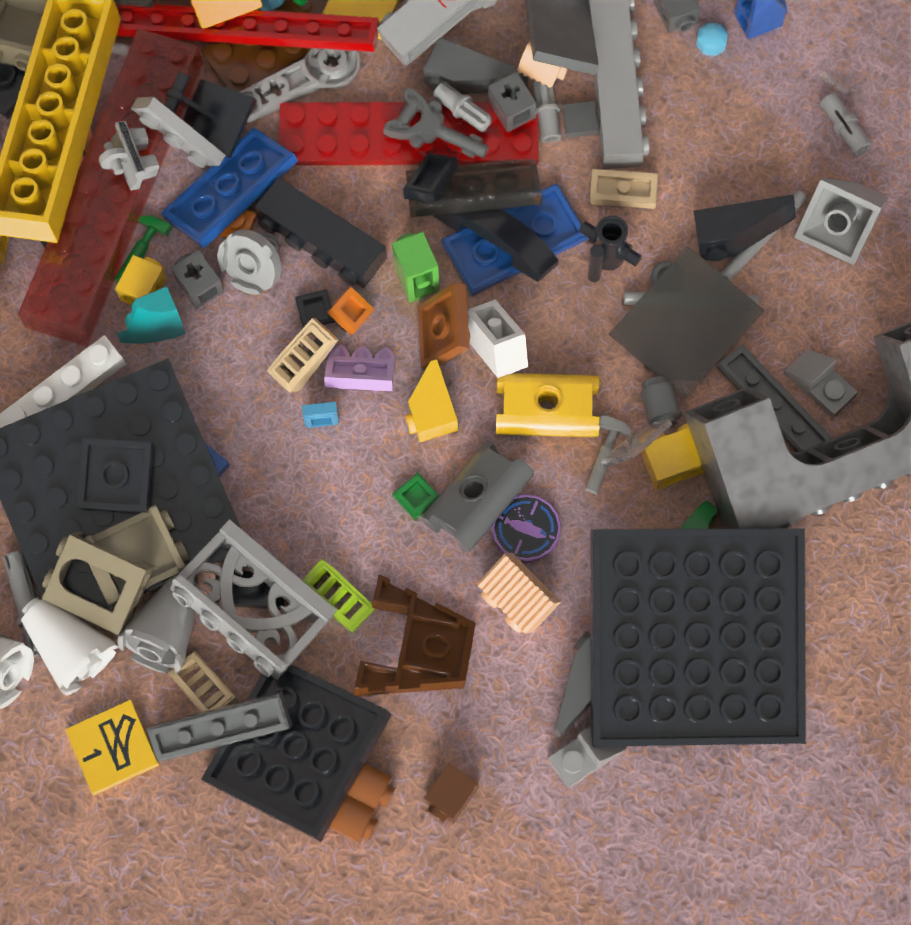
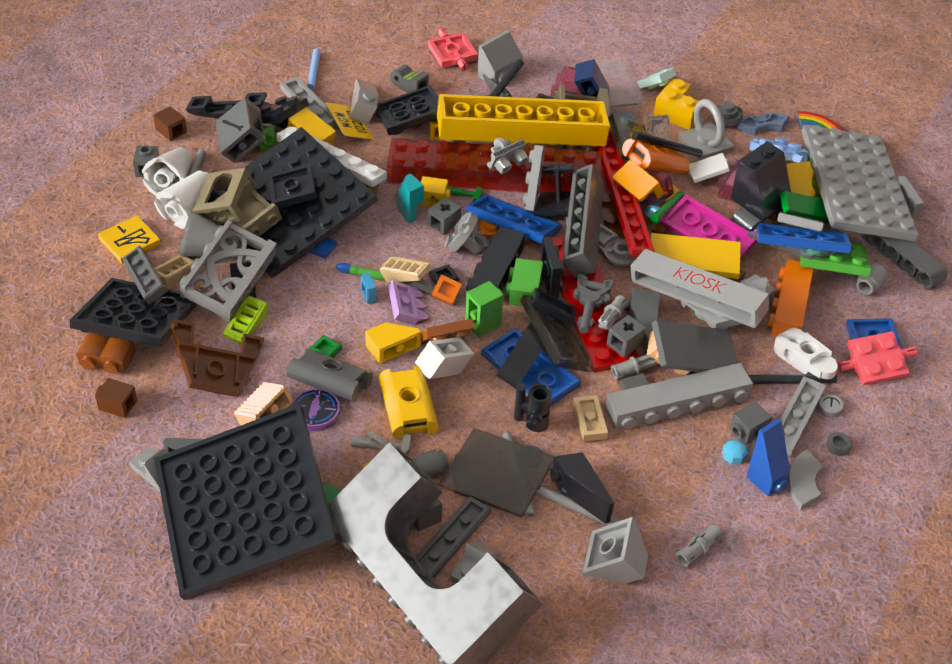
camera: 70 degrees right, 25 degrees down
(274, 419) = (347, 268): none -> bright green piece
(284, 90) = (583, 221): none -> dark grey brick
(358, 161) = (552, 267): none -> black plate
(365, 203) = (524, 277): none -> bright green brick

